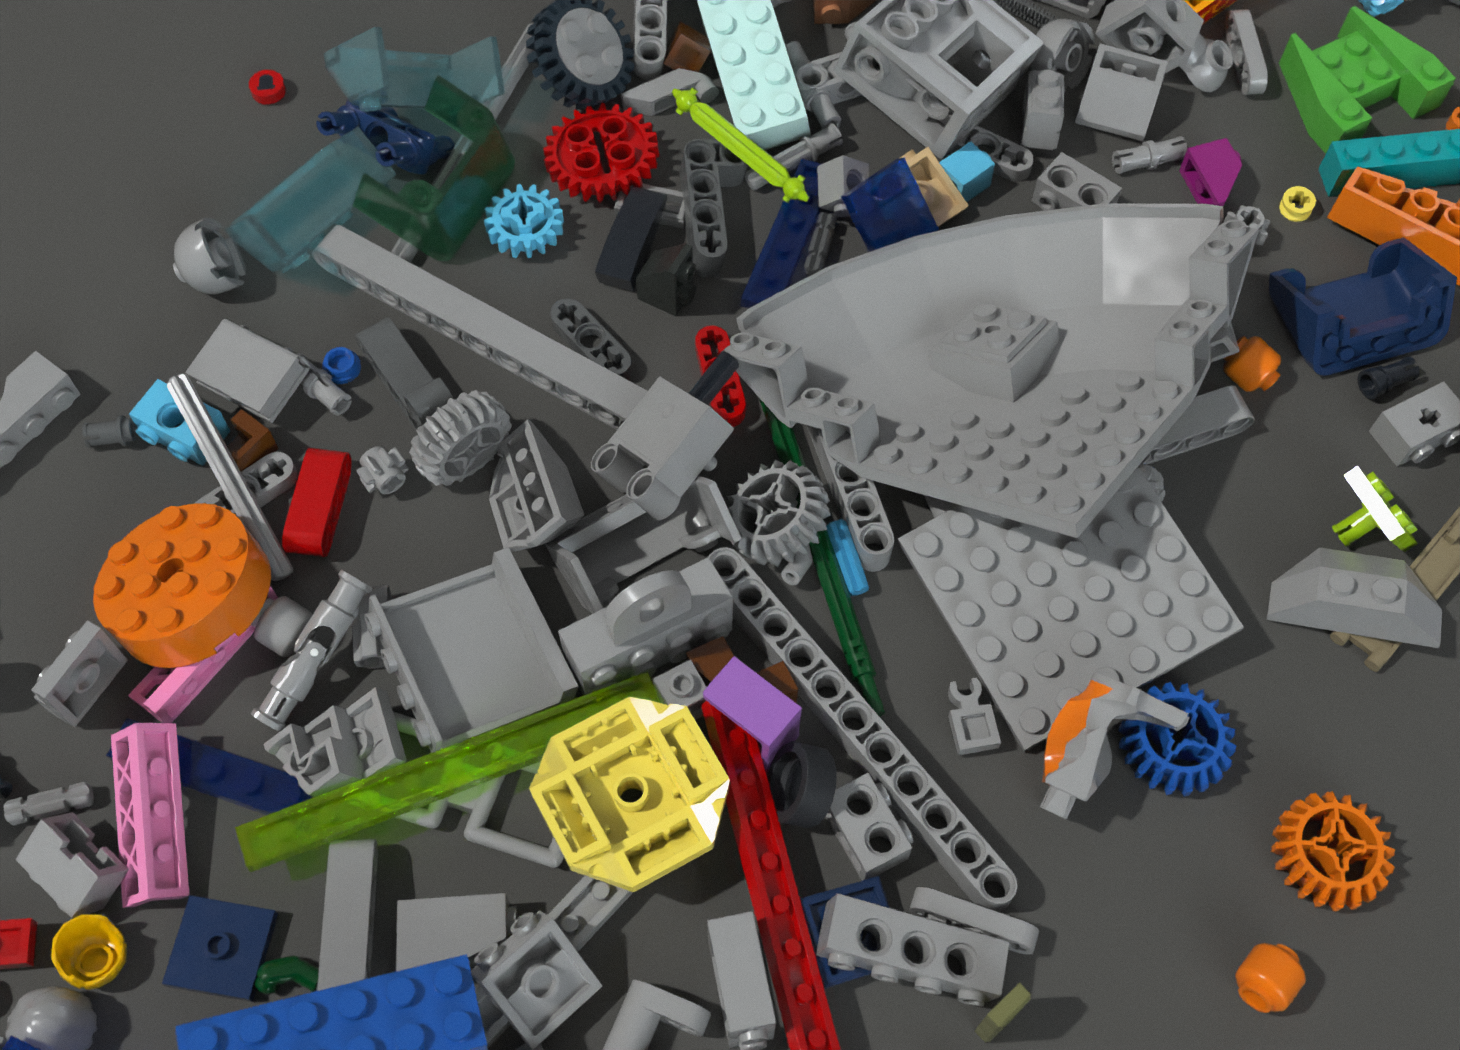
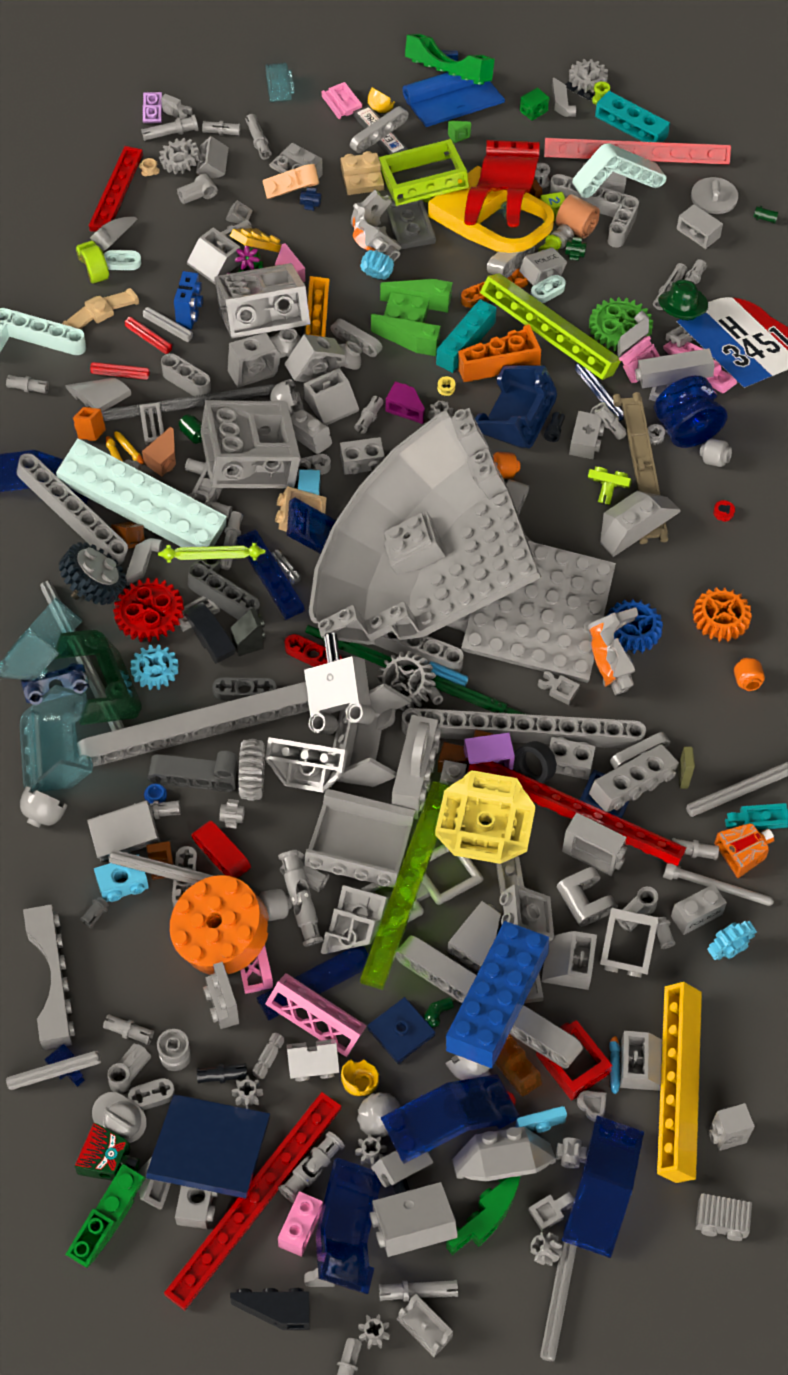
camera: 50 degrees left, 5 degrees down
(836, 179) = (271, 533): light grey brick -> none

